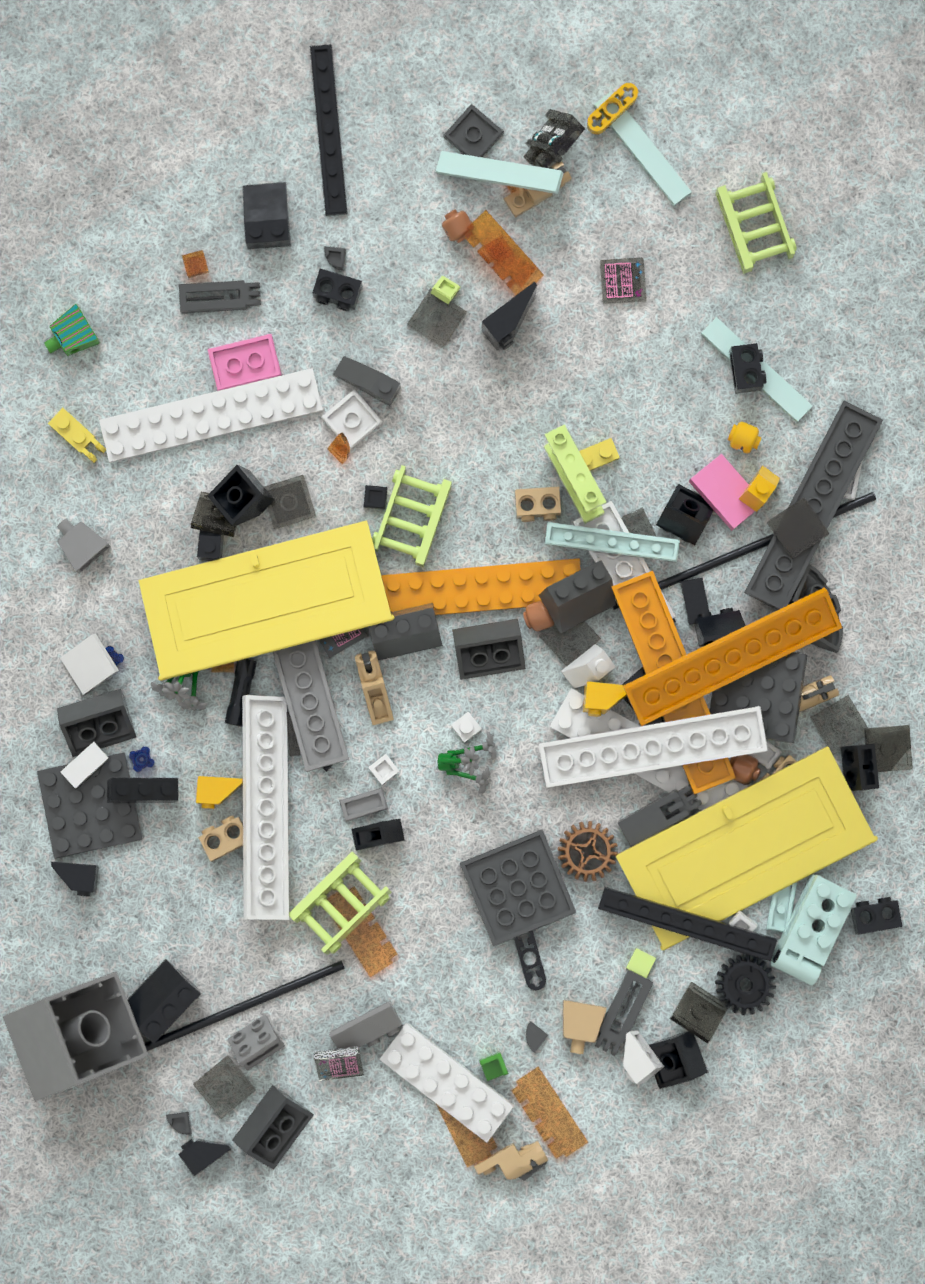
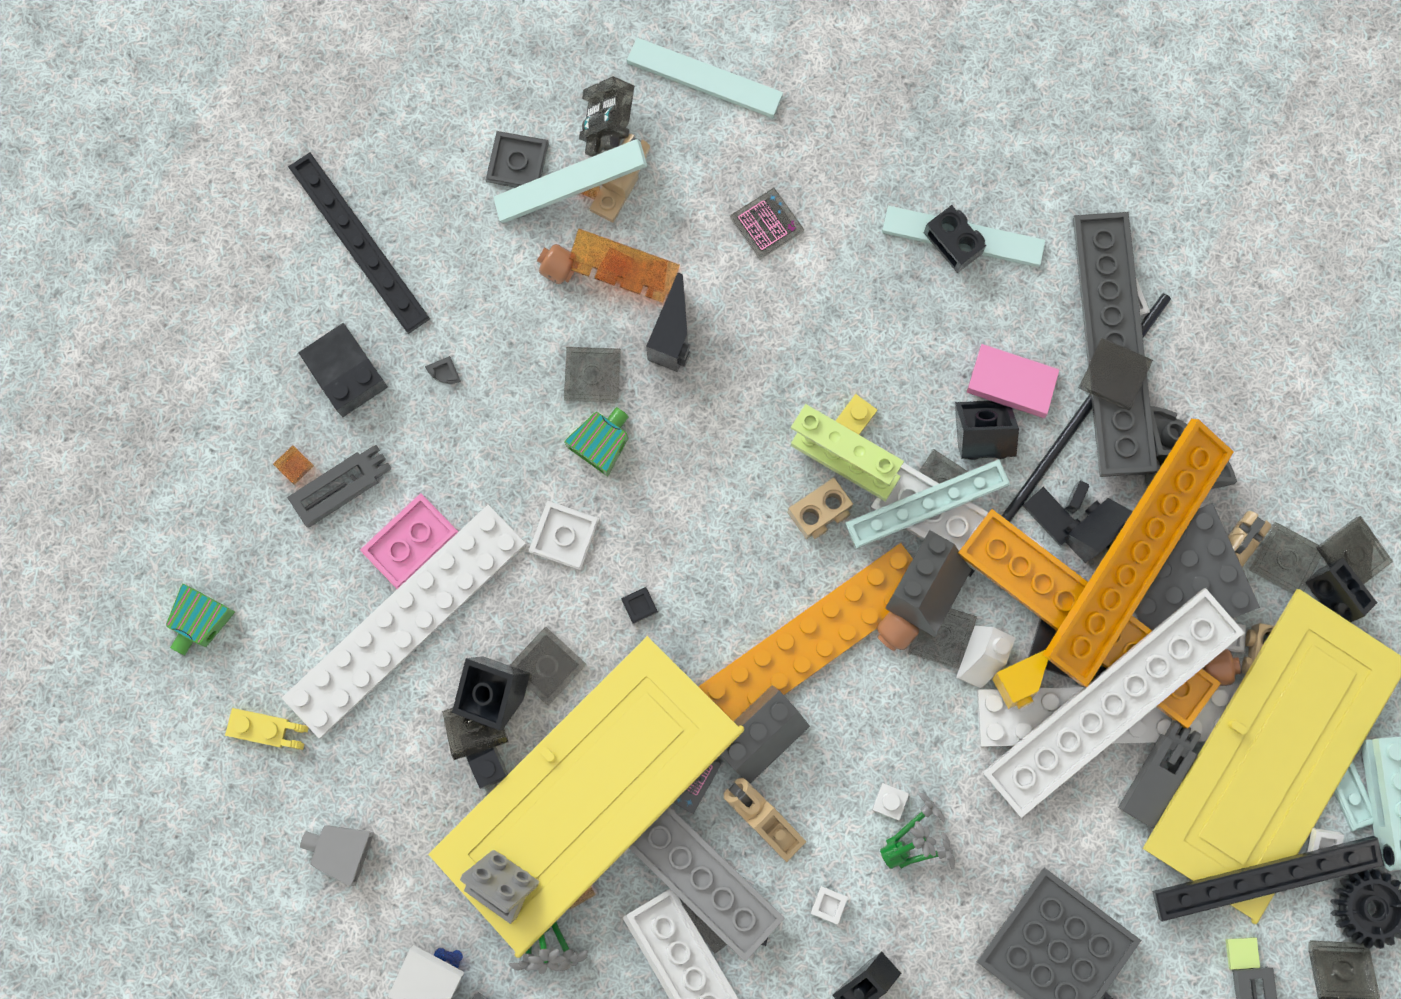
camera: 30 degrees left, 5 degrees down
(173, 625) = (499, 885): none -> light grey bracket
(242, 683) = (615, 908): black axle -> none
(339, 284) = (465, 397): black brick -> none
(340, 448) = (569, 574): clear orange tile -> none
(363, 804) = (829, 958): light grey tile -> none
(368, 380) = (556, 482): dark grey slope -> none
(414, 368) = (600, 440): none -> bright green torso
(433, 512) = (712, 584): yellowish green fence -> none
(445, 289) = (583, 338): yellowish green tile -> none
(489, 649) = (863, 699): dark grey slope -> none
(570, 844) = (1111, 875): medium nougat gear -> none
(628, 101) = (646, 42): yellow beam -> none
(720, 597) = (1077, 496): none -> black tile
(734, 218) = (864, 111): yellowish green fence -> none
(744, 437) = (996, 312): yellow head -> none
(759, 489) = (1047, 357): yellow slope -> none

